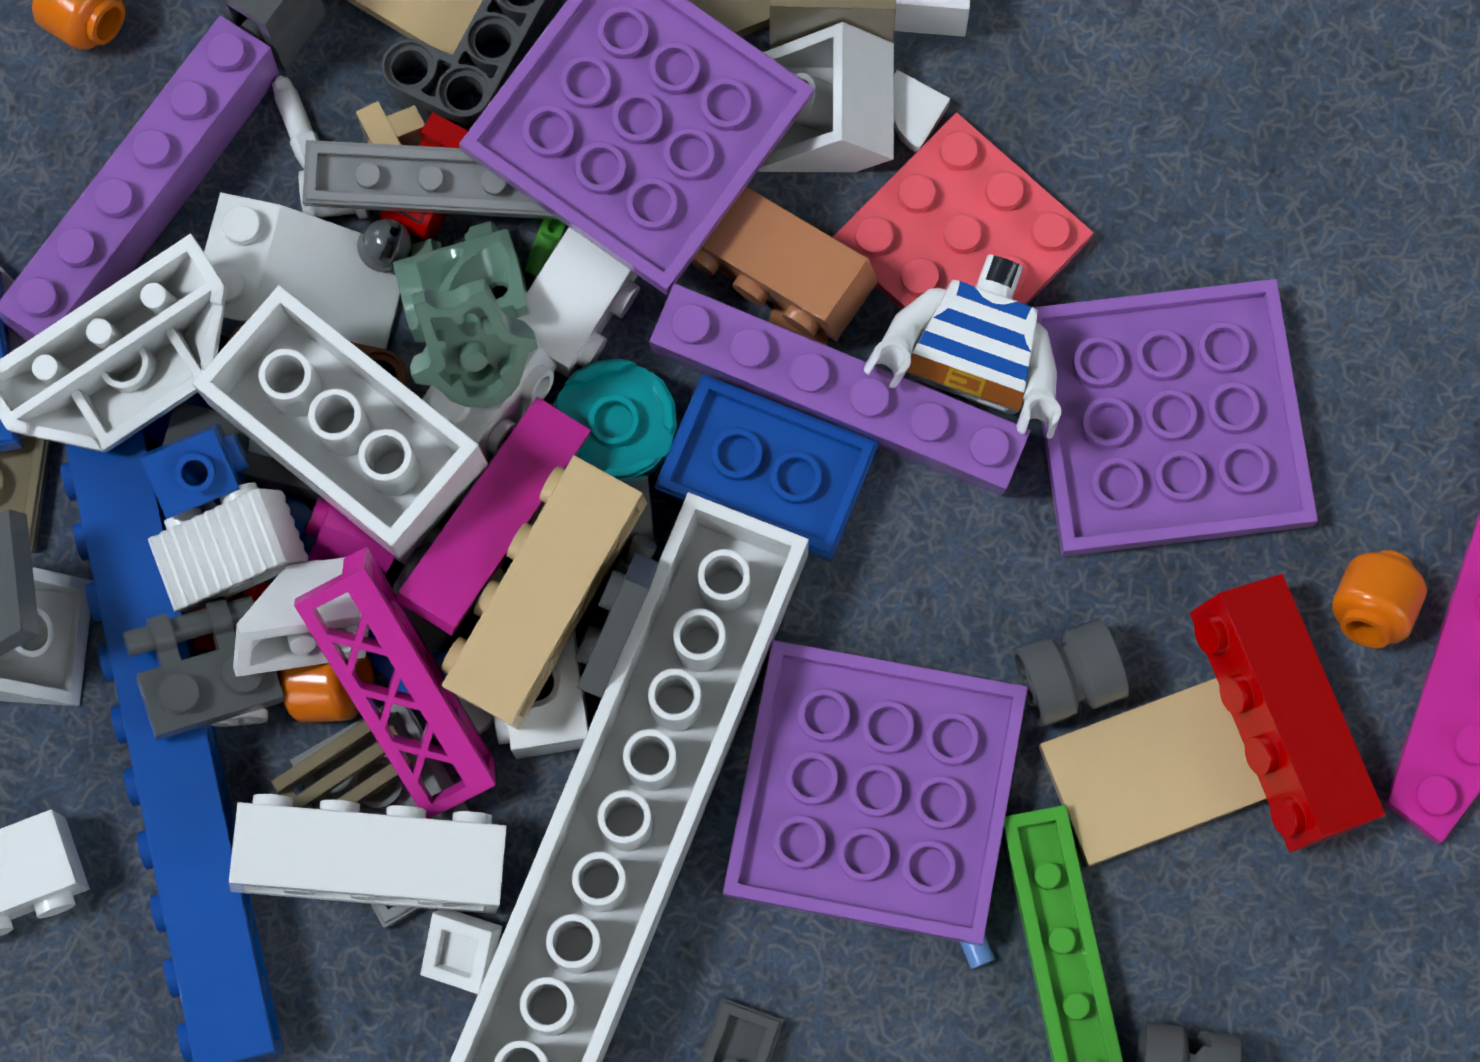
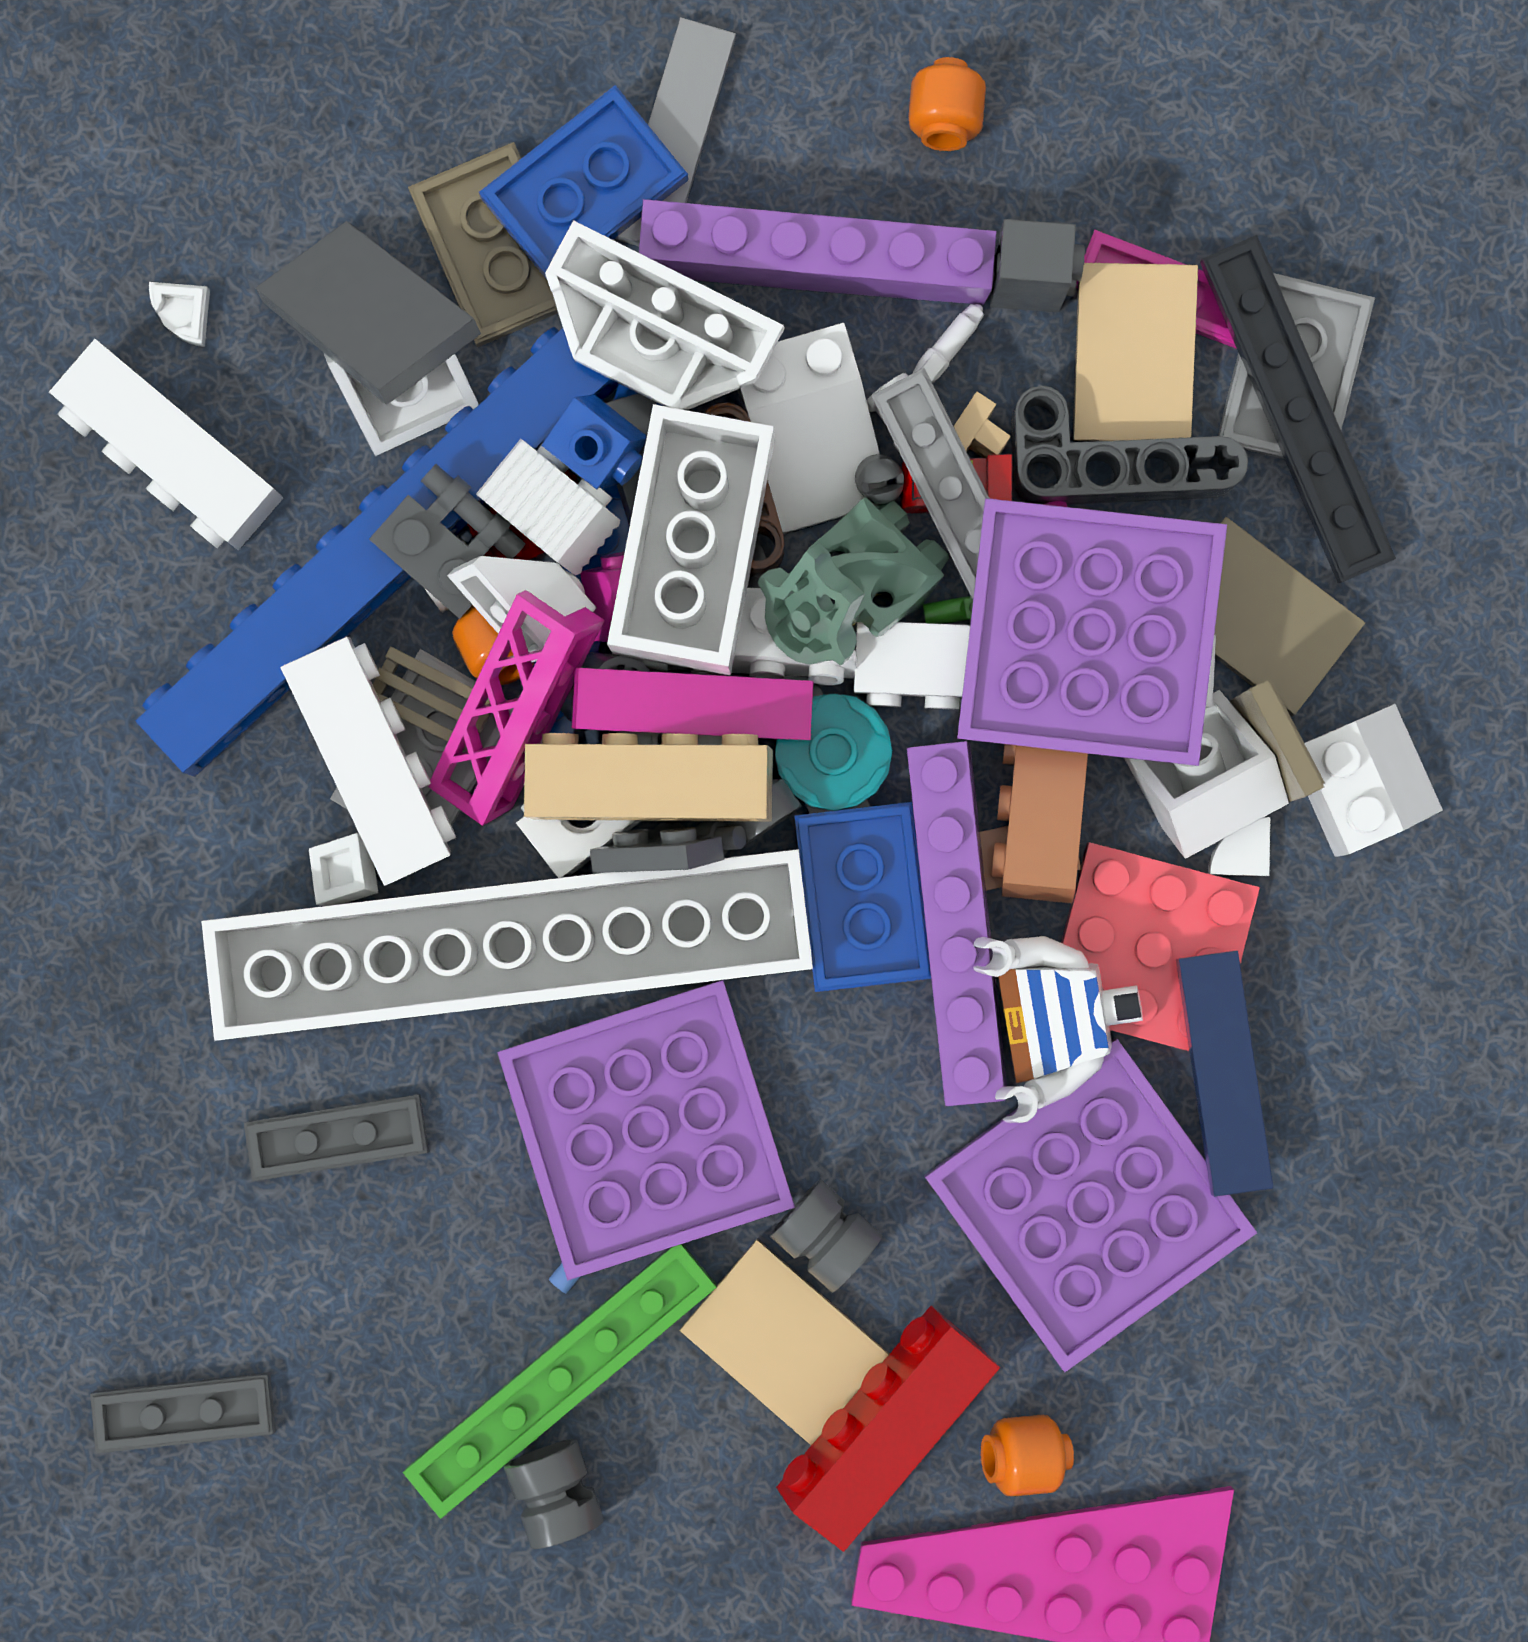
camera: 60 degrees right, 10 degrees up
(1111, 227) = (1224, 1073): none -> dark blue tile

